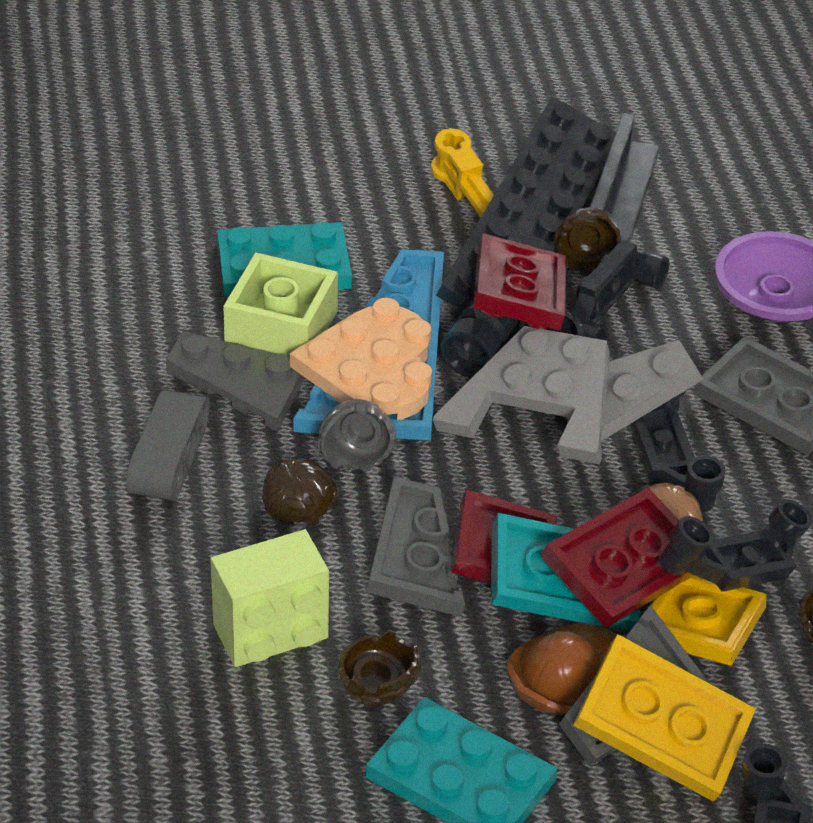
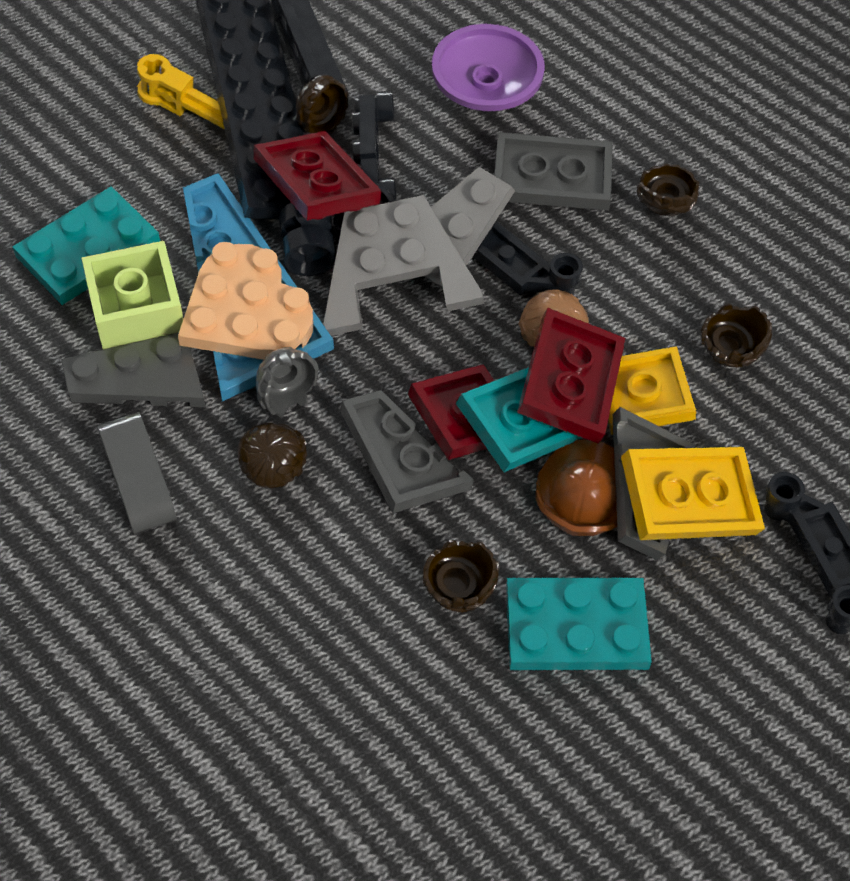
camera: 35 degrees left, 15 degrees up
(270, 597) = (341, 568): yellowish green brick -> none
(741, 558) = (649, 325): black plate -> none

